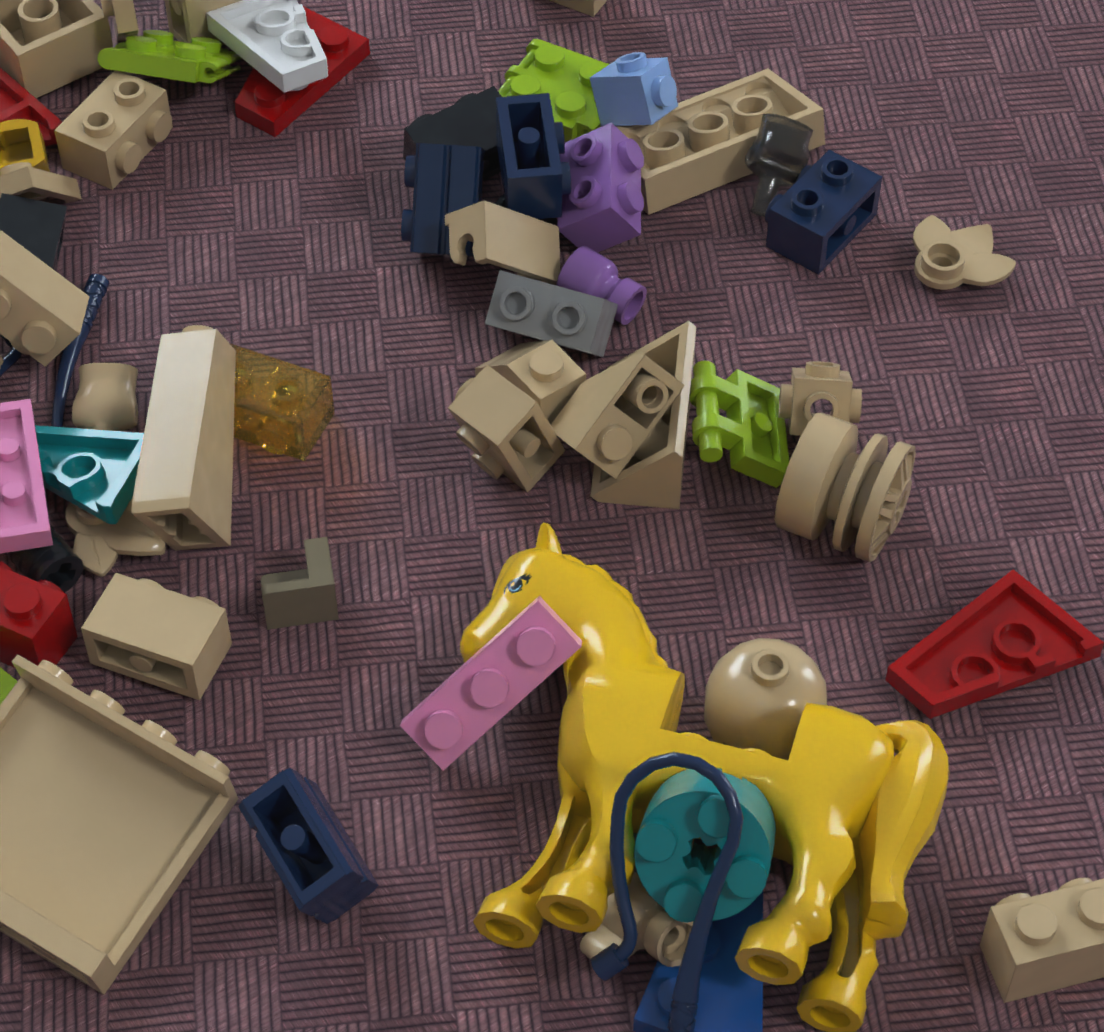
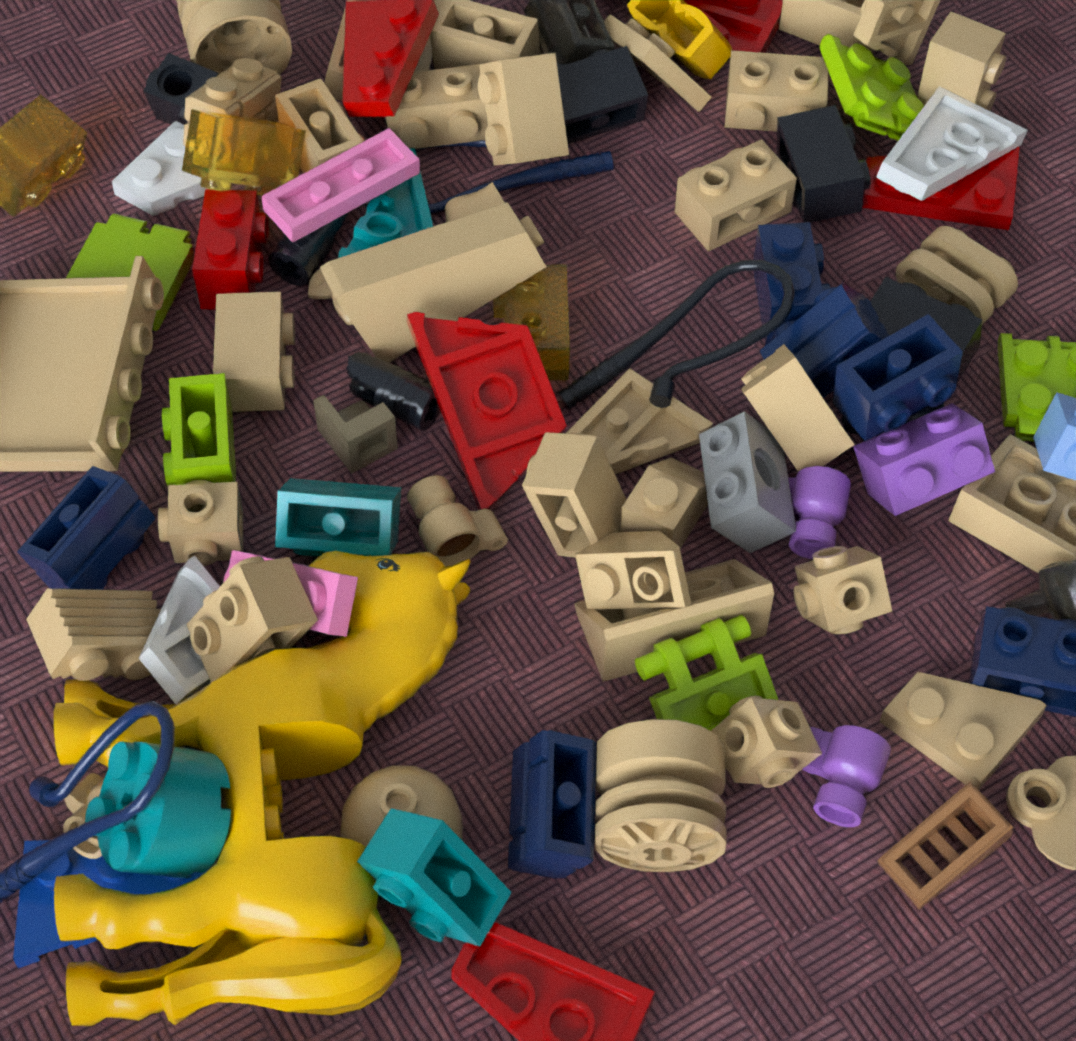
camera: 65 degrees right, 5 degrees up
(213, 204) = (734, 194): none -> tan brick
(228, 129) = (824, 160): none -> black brick
(248, 708) = (199, 431): none -> lime brick
(273, 540) = (400, 390): none -> black hinge
(346, 206) = (803, 260): none -> dark blue brick
(349, 458) = (489, 396): none -> red wing
(350, 740) = (202, 521): none -> tan brick
(406, 90) = (959, 272): none -> tan brick
(411, 626) = (337, 517): none -> teal brick
(413, 330) = (664, 386): none -> black piece
(425, 376) = (636, 430): none -> tan wing
(445, 865) = (93, 632): none -> tan brick
(462, 553) = (449, 527): none -> tan piece
(483, 784) = (169, 648): none -> white wing
(523, 711) = (251, 614): none -> tan brick
(695, 291) = (841, 589): none -> tan brick
(809, 571) = (552, 805): none -> dark blue brick
(850, 286) = (961, 724): none -> tan wing
(857, 667) = (434, 877): none -> teal brick
(869, 367) = (854, 765): none -> medium lavender piece
(961, 302) = (983, 814): none -> medium nougat slope

